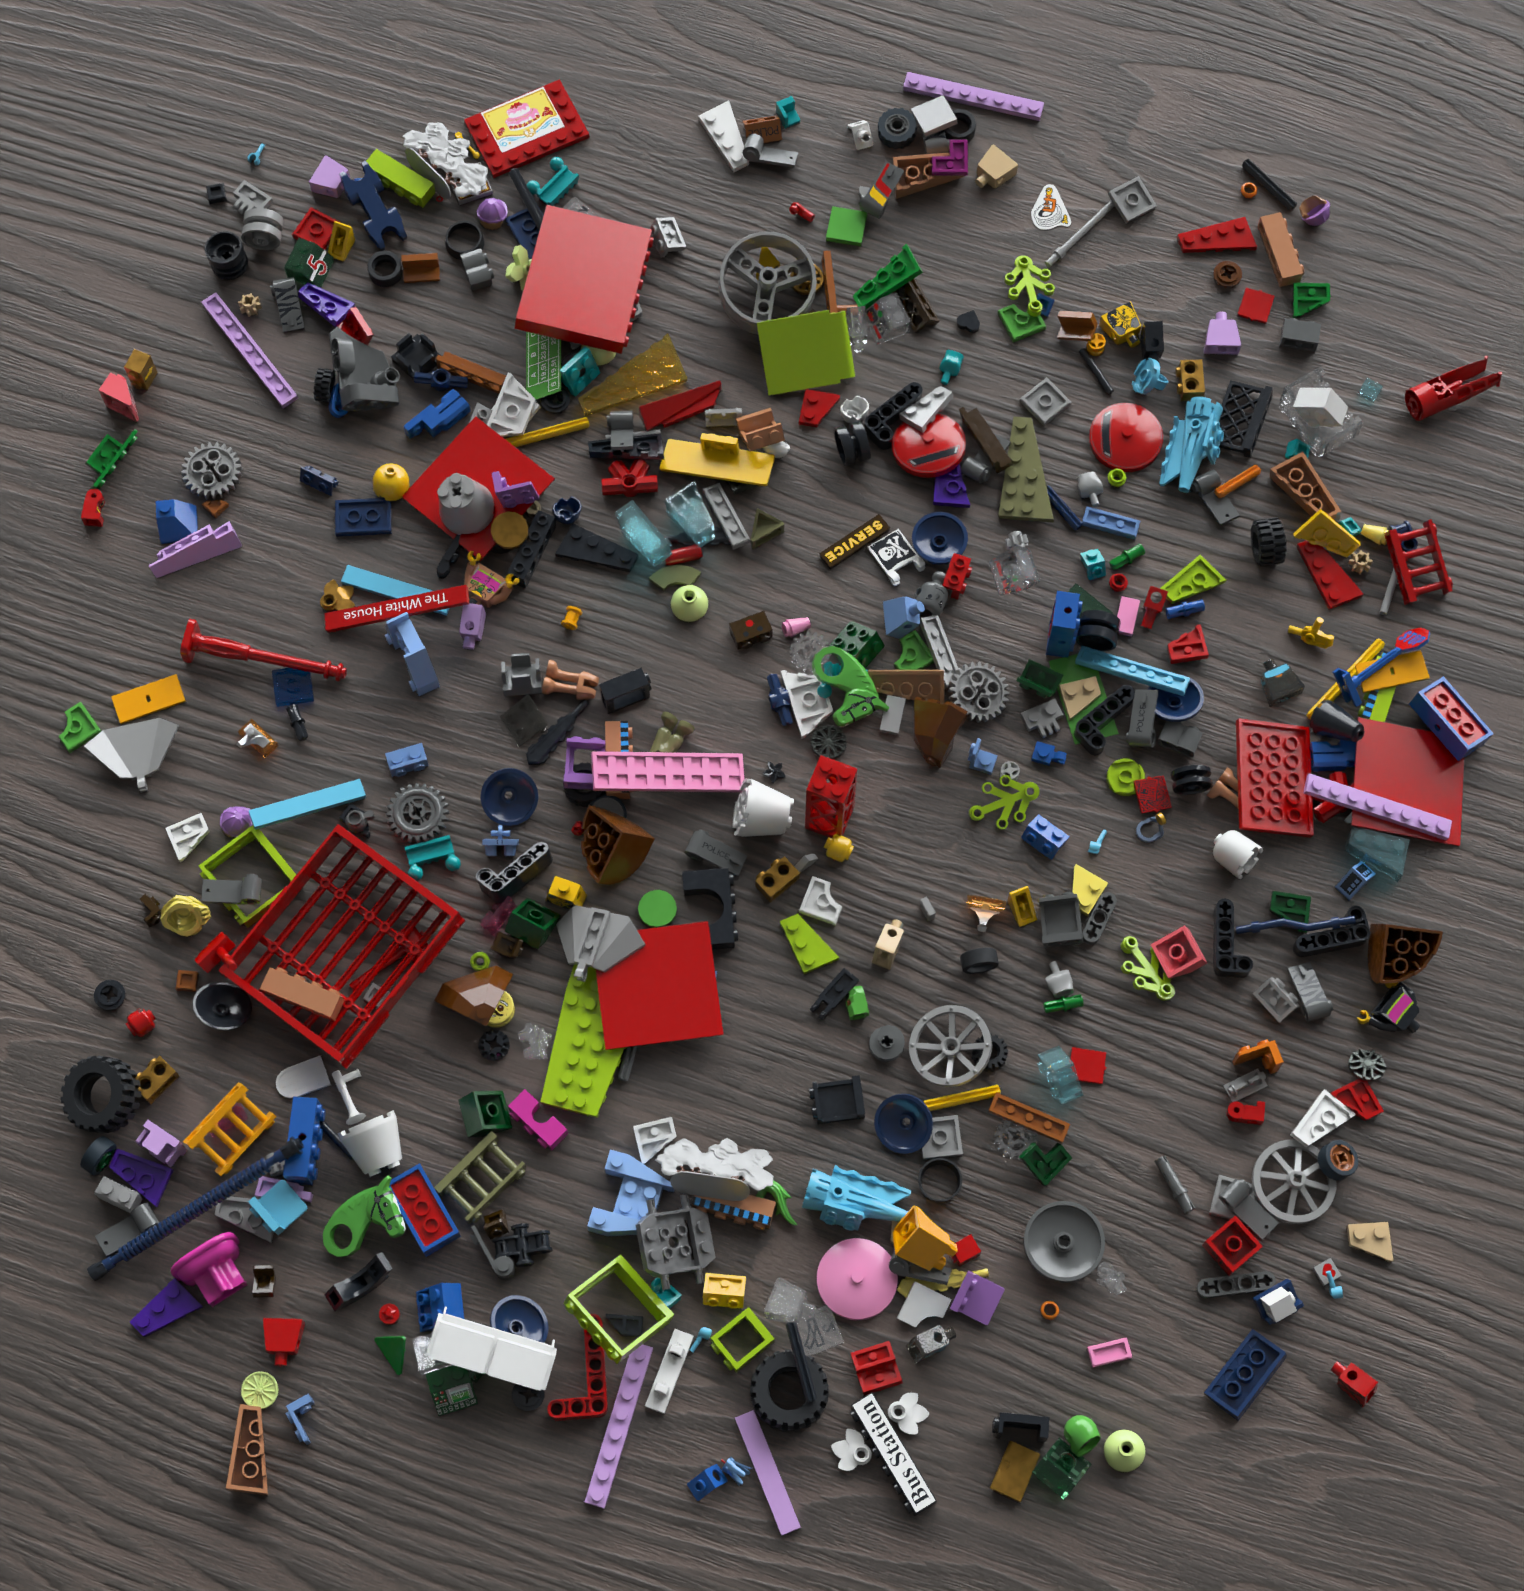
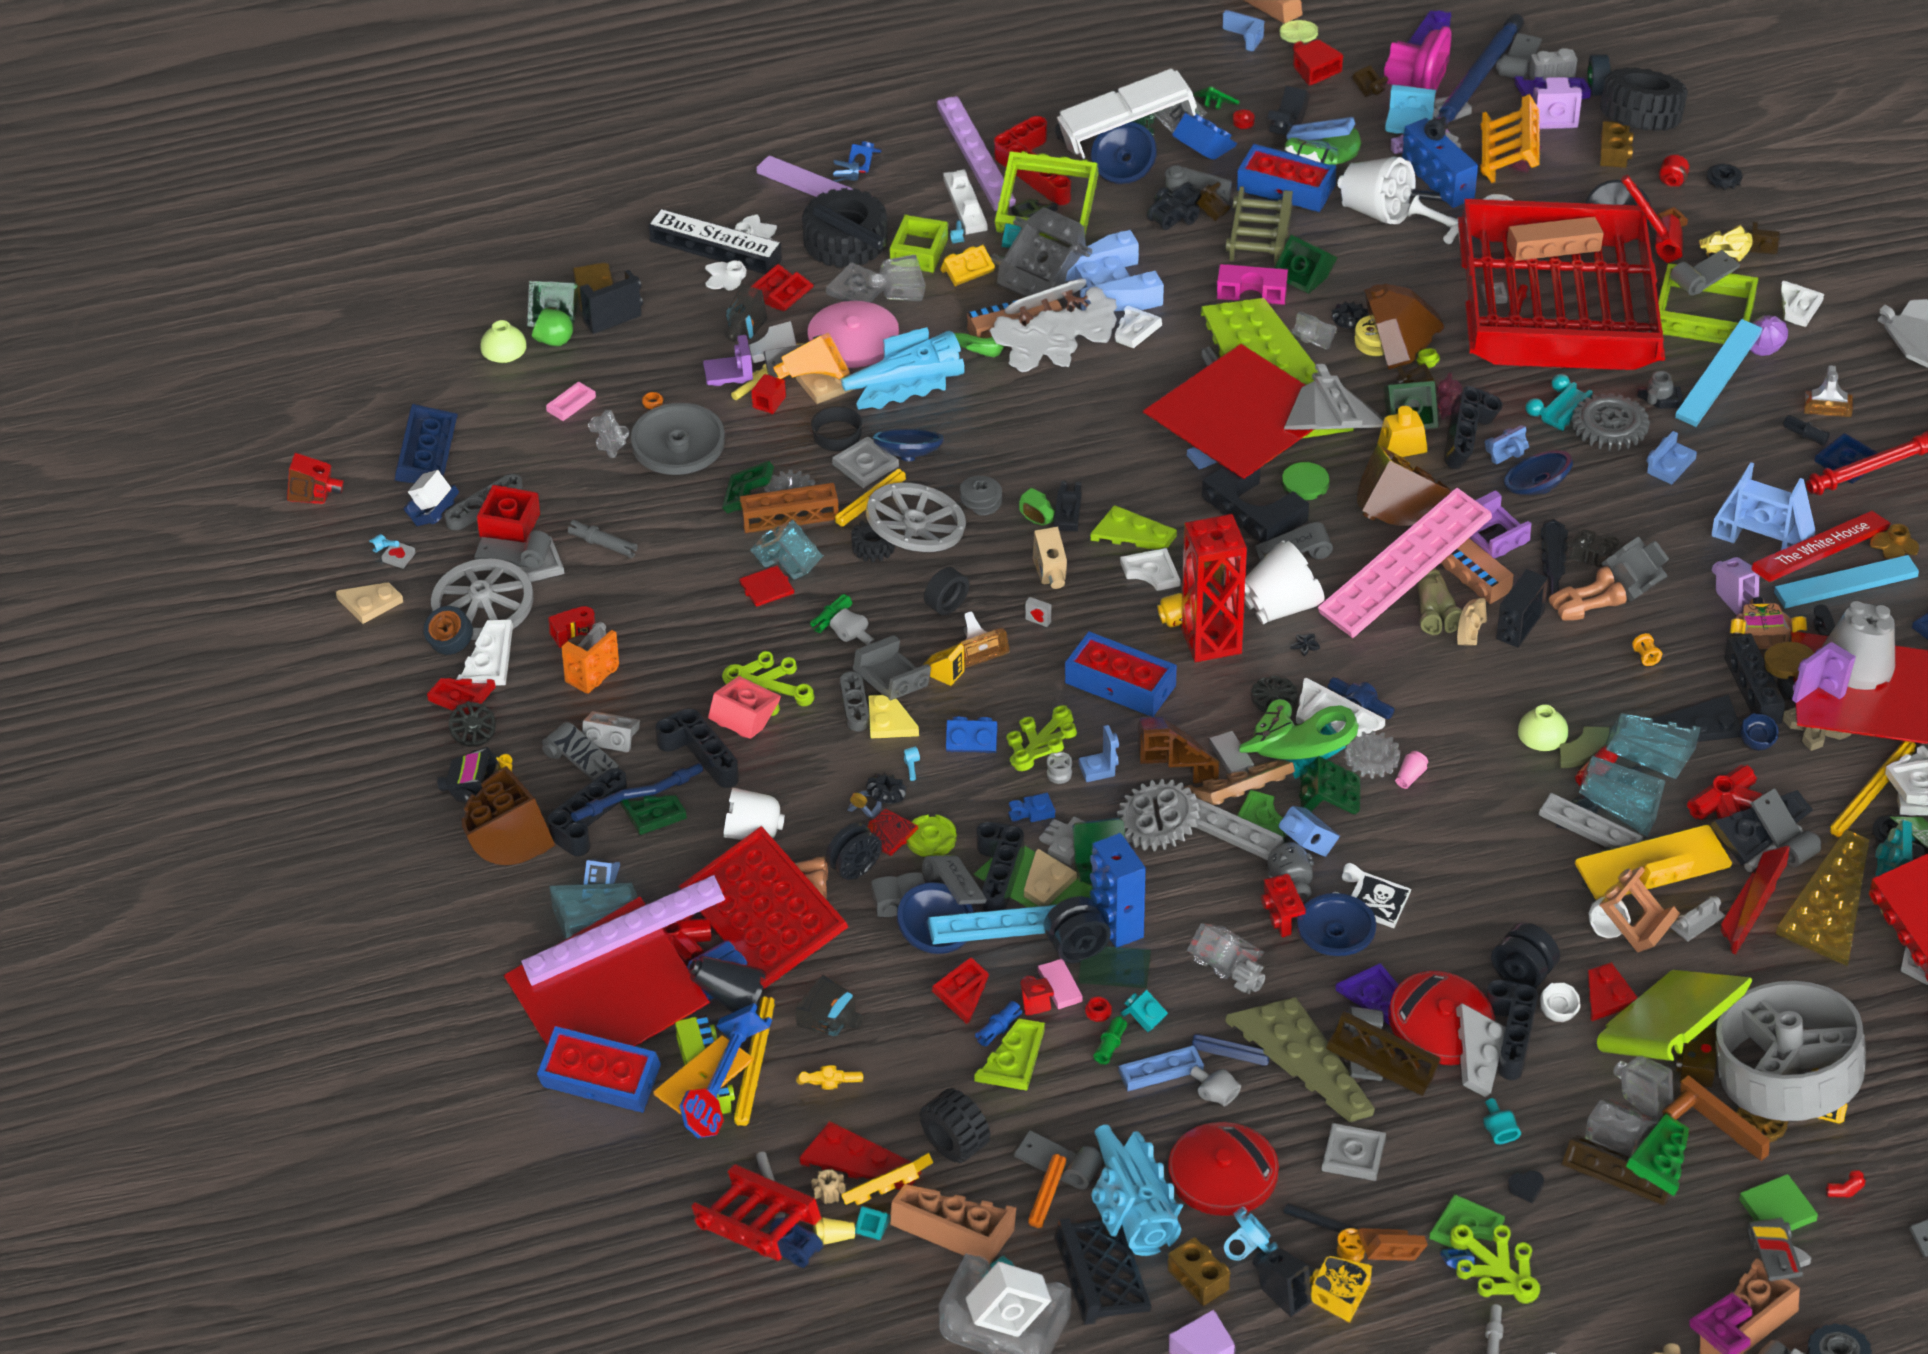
camera: 145 degrees right, 25 degrees down
(360, 1231) = (1322, 129): none -> medium blue tile
(661, 708) = (1470, 621): none -> tan tile
(751, 630) = (1453, 738): dark brown brick -> none
(765, 528) = (1537, 832): olive slope -> none
(837, 1101) = (990, 434): black panel -> none
(854, 541) = (1429, 885): dark brown tile -> none
(861, 134) = (1874, 1318): white bracket -> none
(918, 813) = (1120, 674): none -> blue brick
(1117, 473) = (1195, 1110): lime plate -> none
(1133, 836) = (877, 788): none -> black gear

